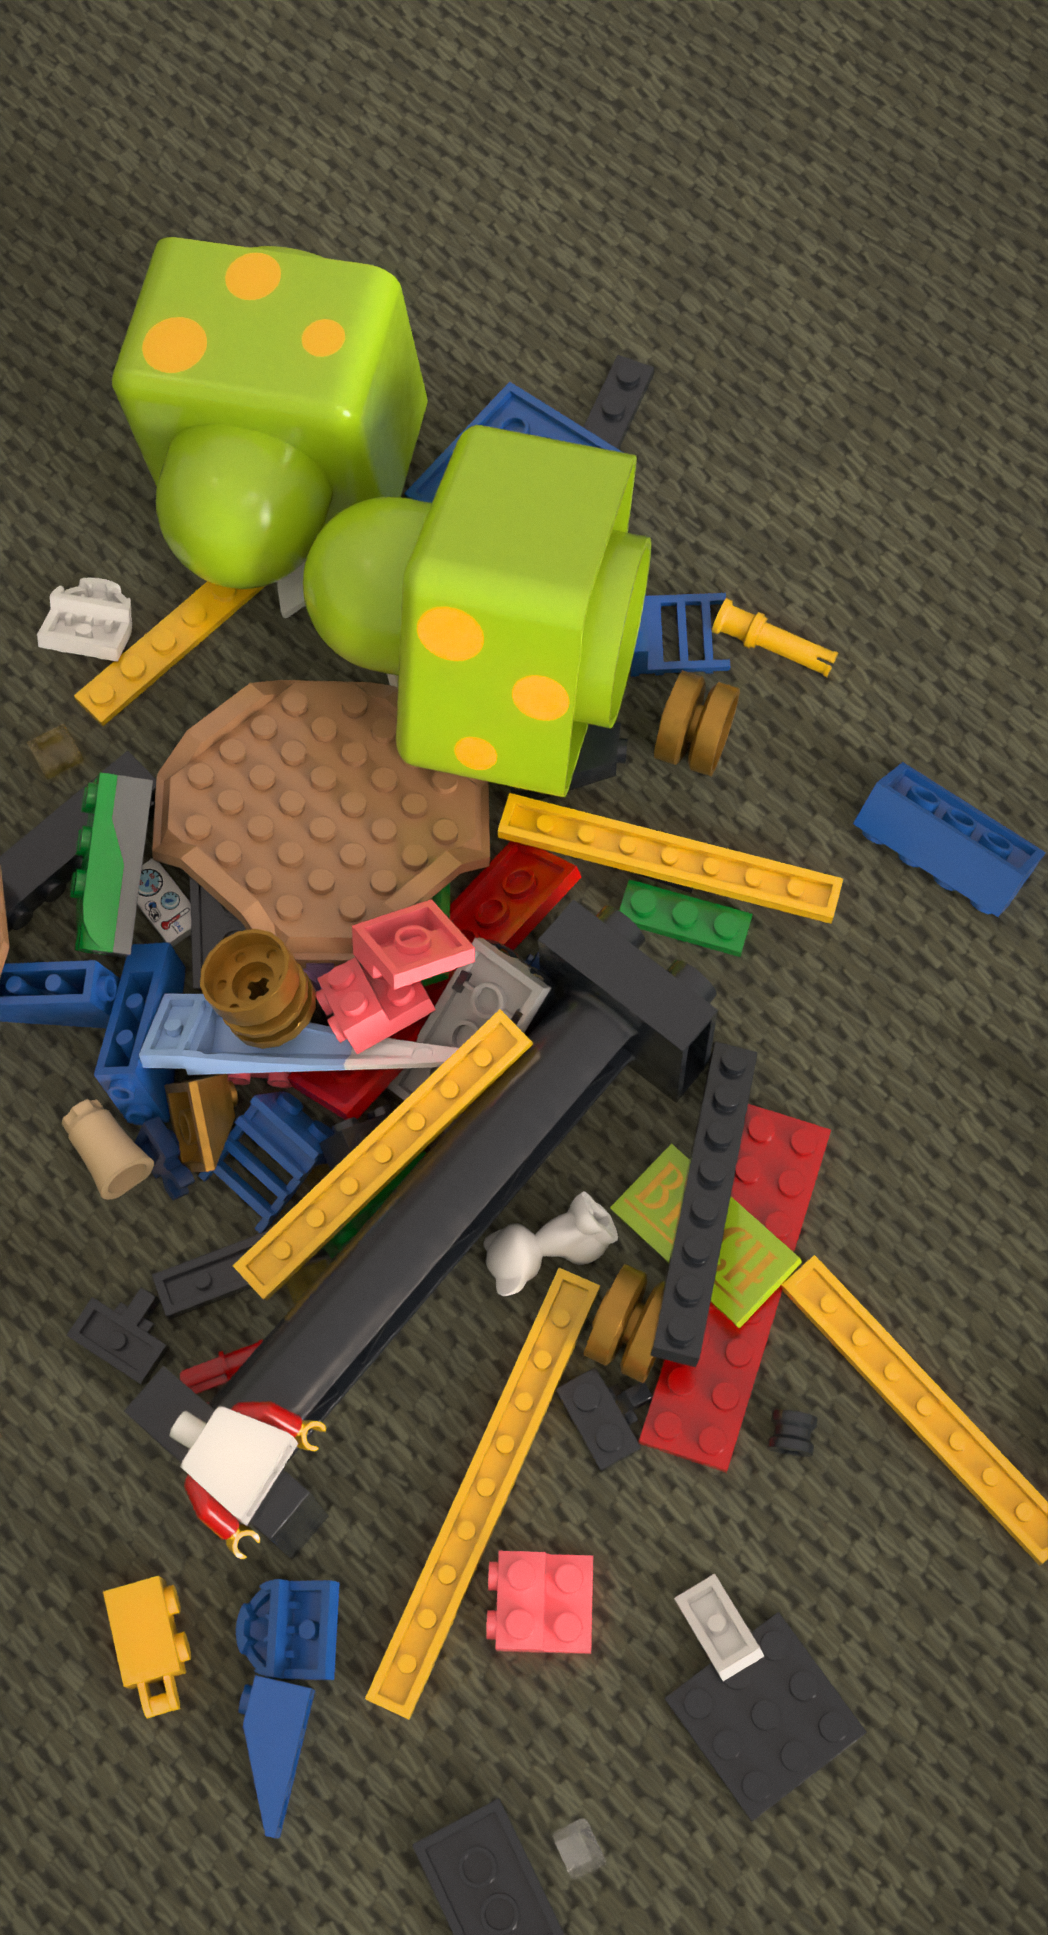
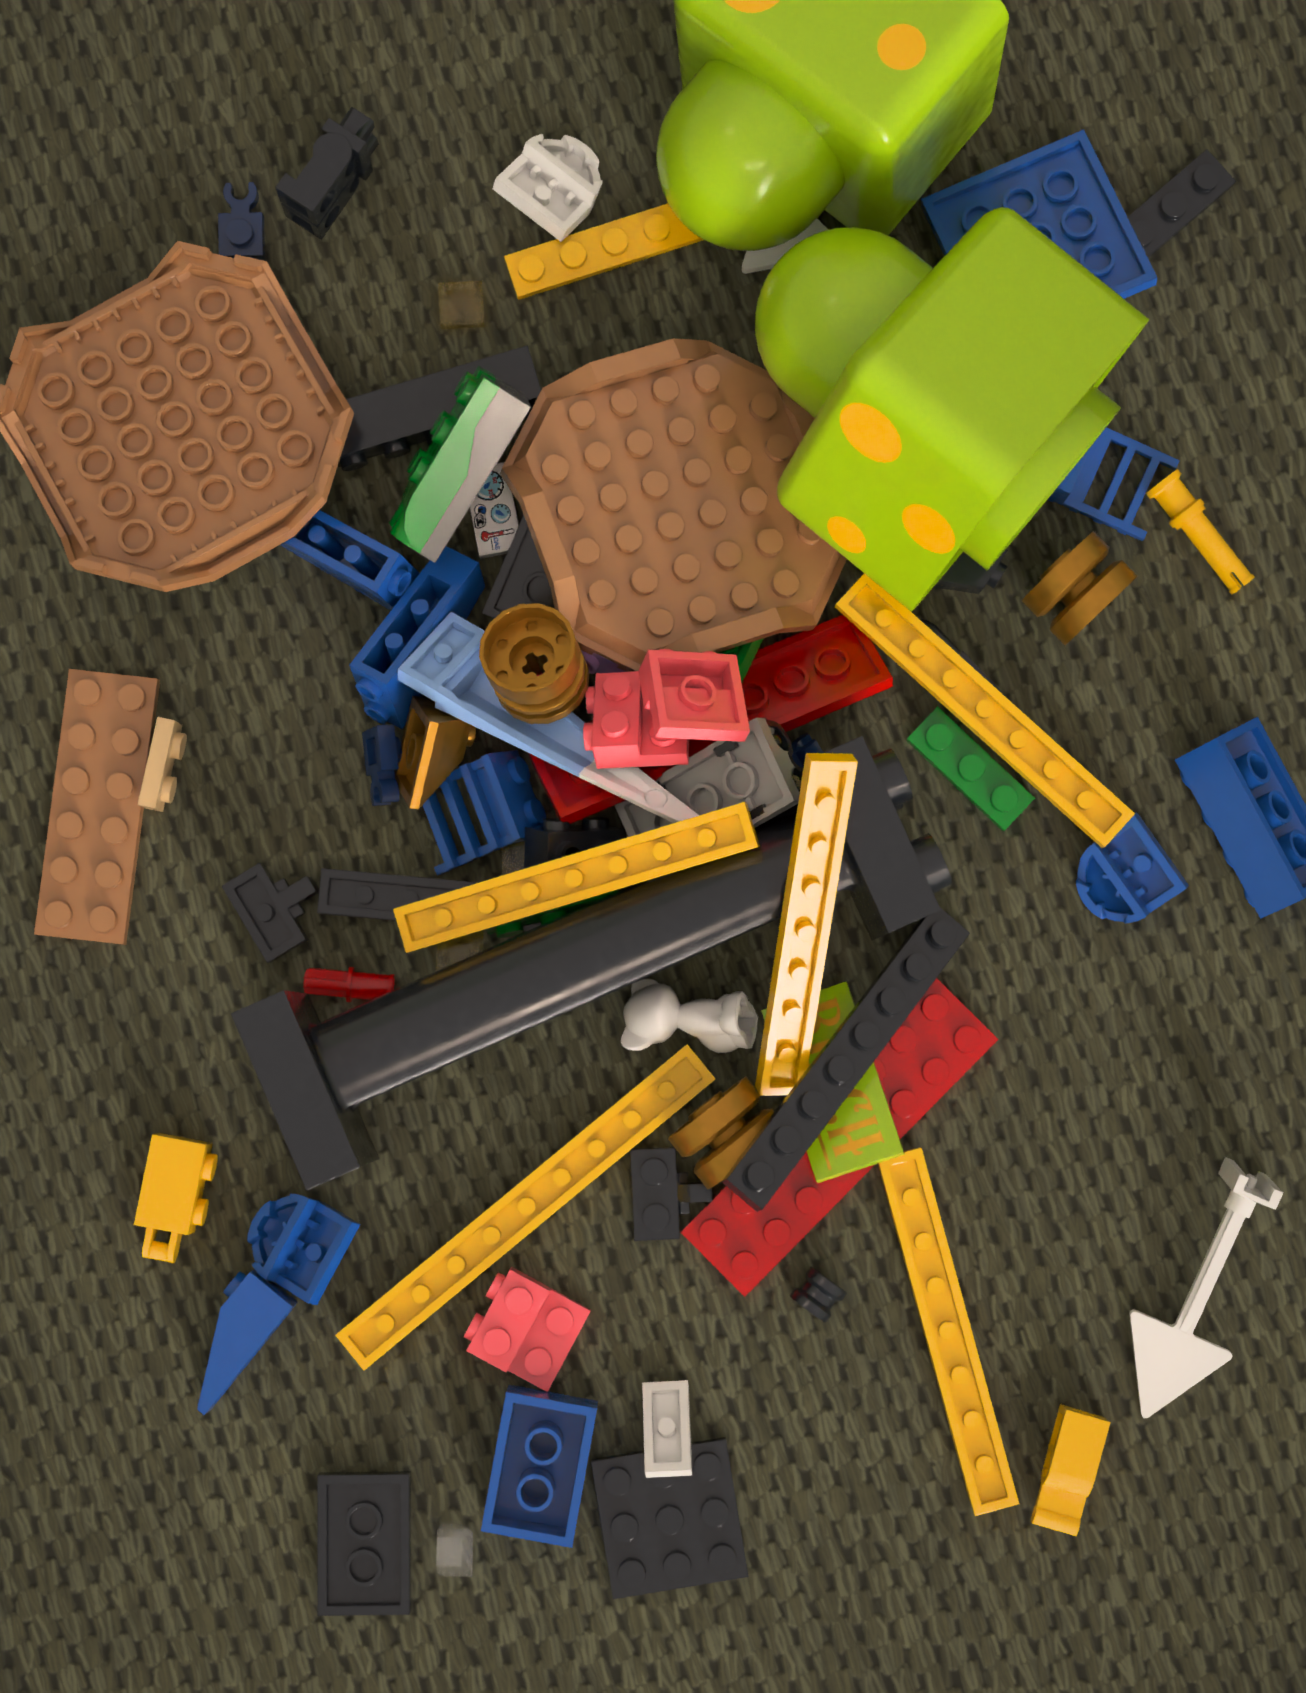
camera: 20 degrees right, 15 degrees up
(106, 1149) = (333, 728): tan plant -> none
(237, 1462) = (308, 1111): white torso -> none
(607, 1087) = (805, 920): none -> yellow plate
(618, 1722) = (539, 1466): none -> blue brick
(865, 937) = (1128, 875): none -> blue slope

